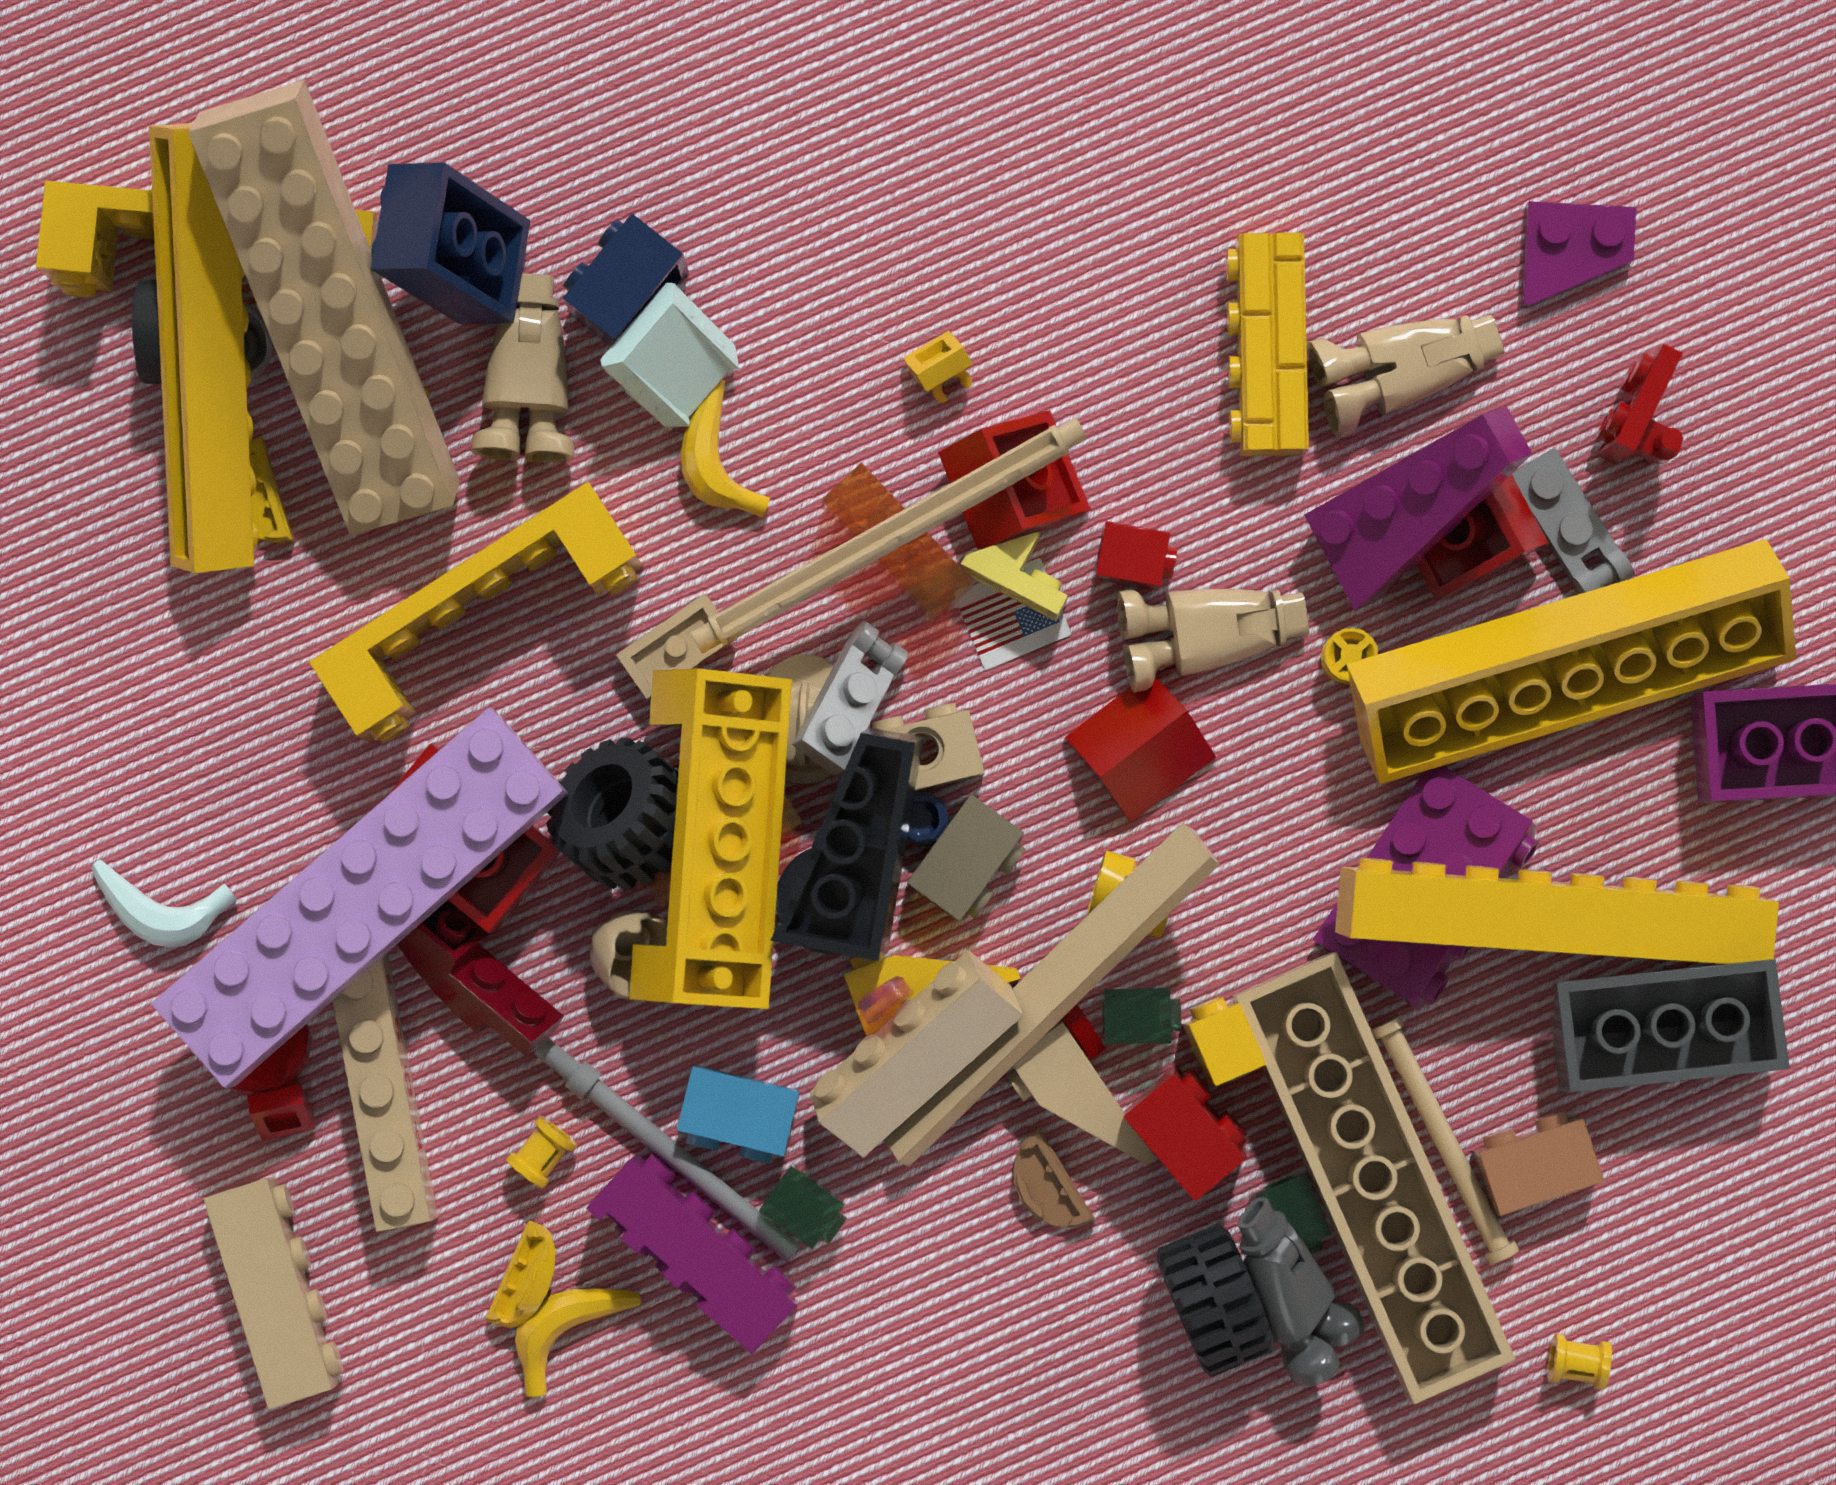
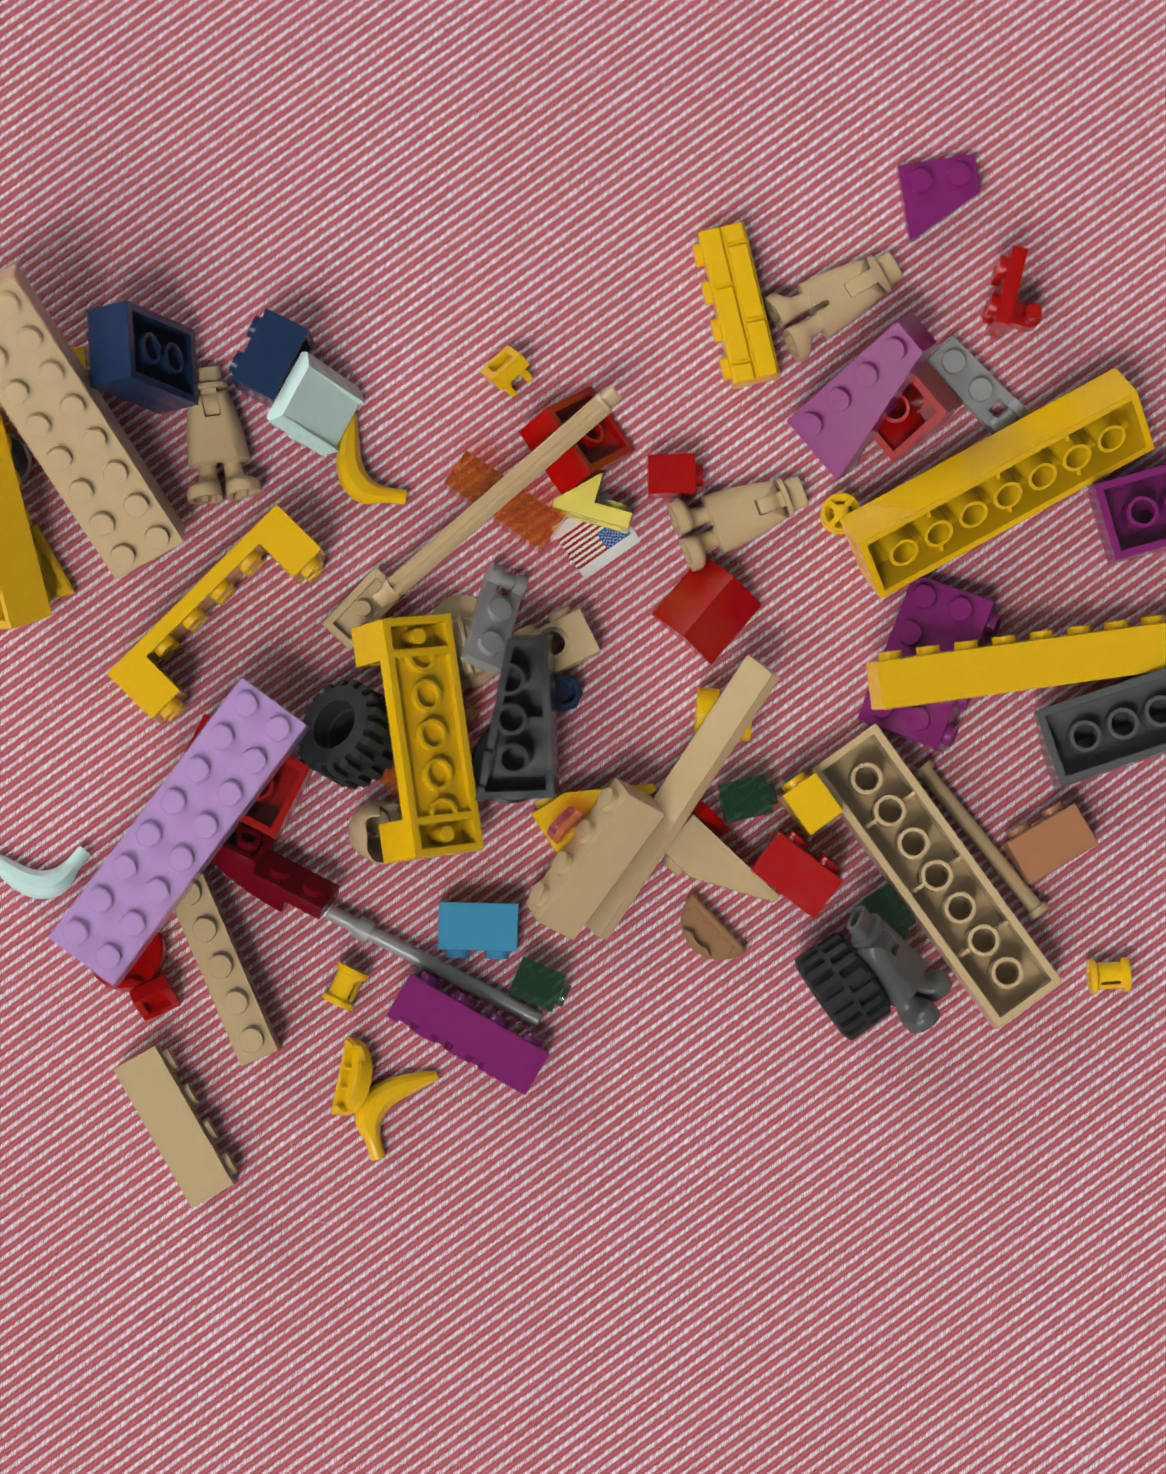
camera: 15 degrees left, 0 degrees up
(966, 859) = (600, 715): dark tan brick -> none

